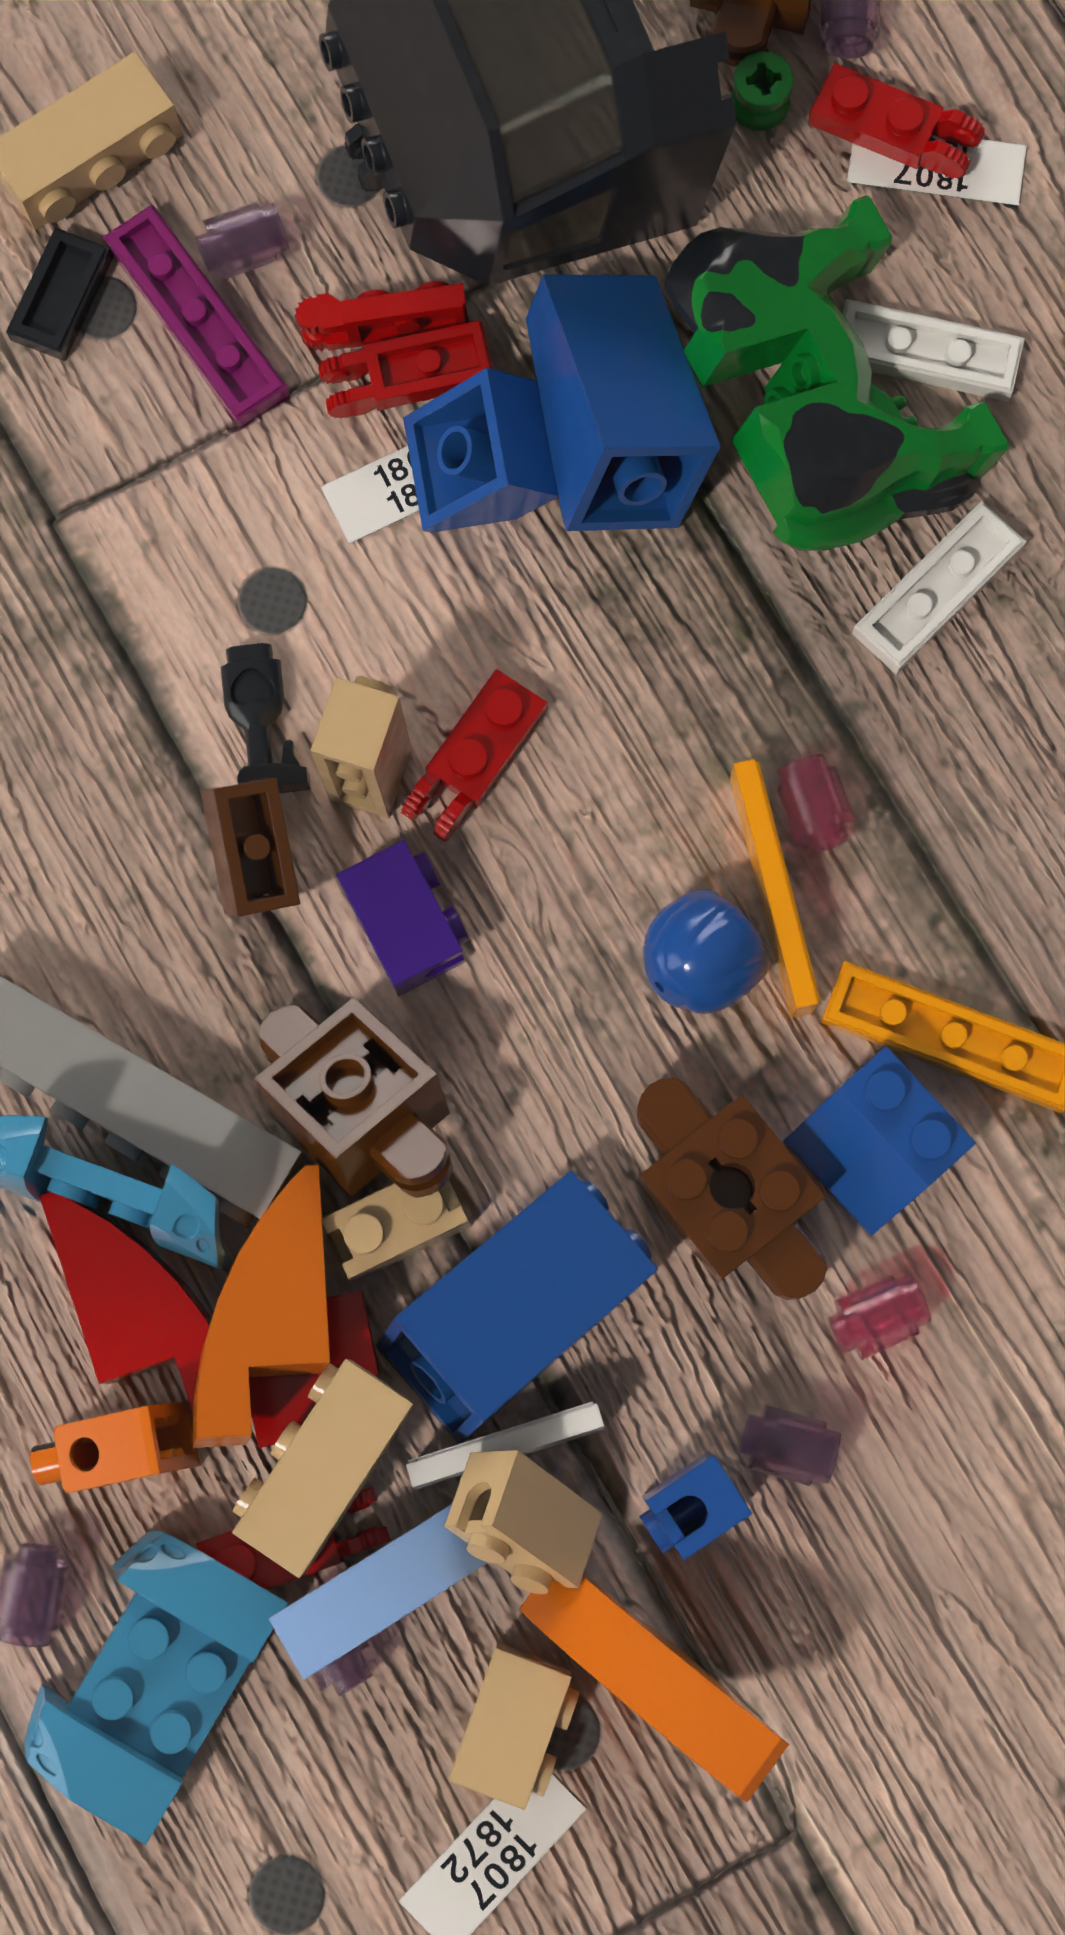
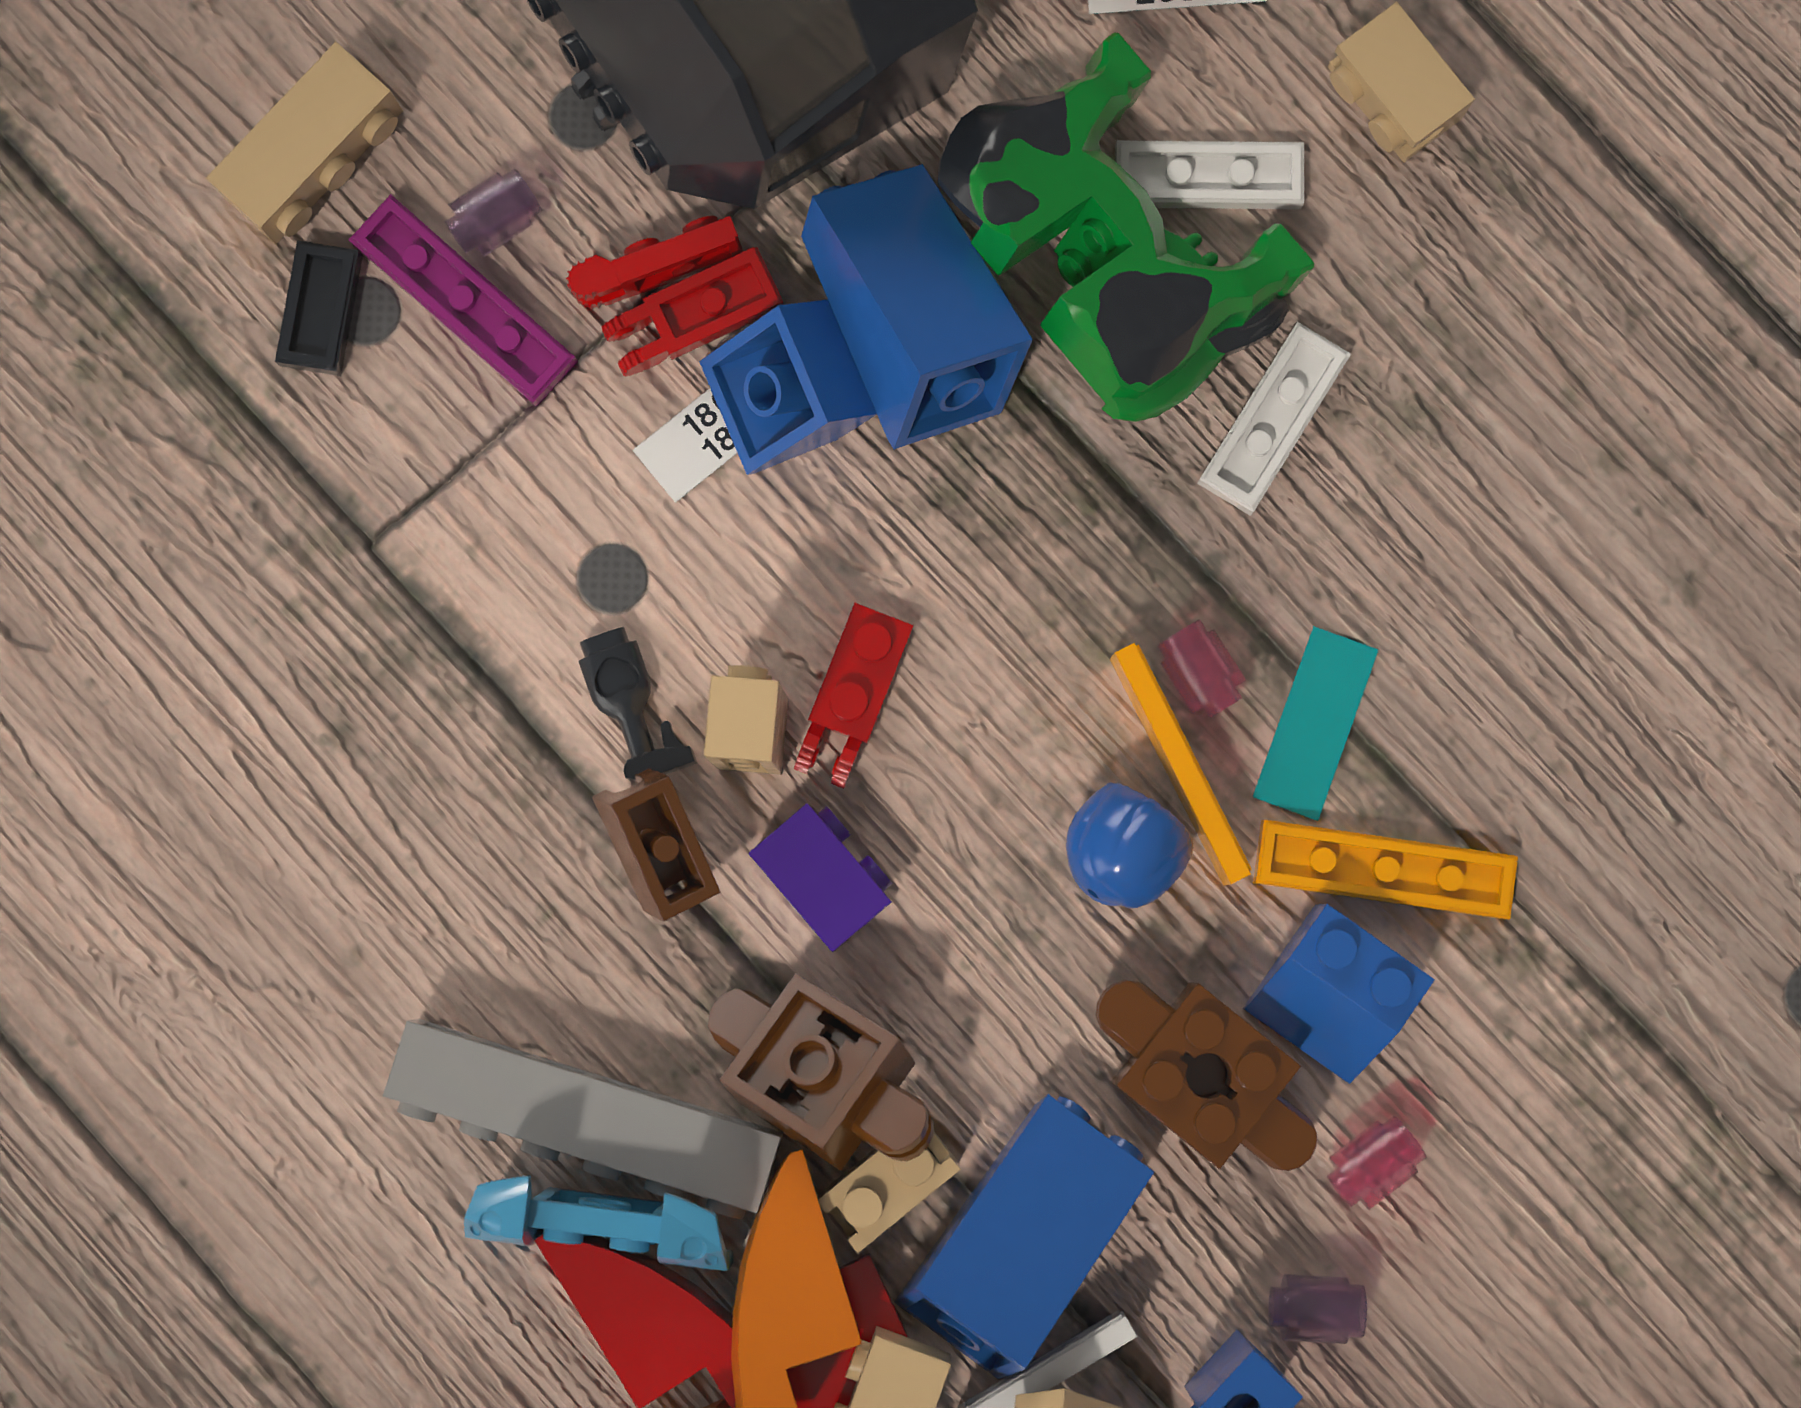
camera: 15 degrees left, 5 degrees up
(915, 884) = (1315, 723): none -> teal sticker

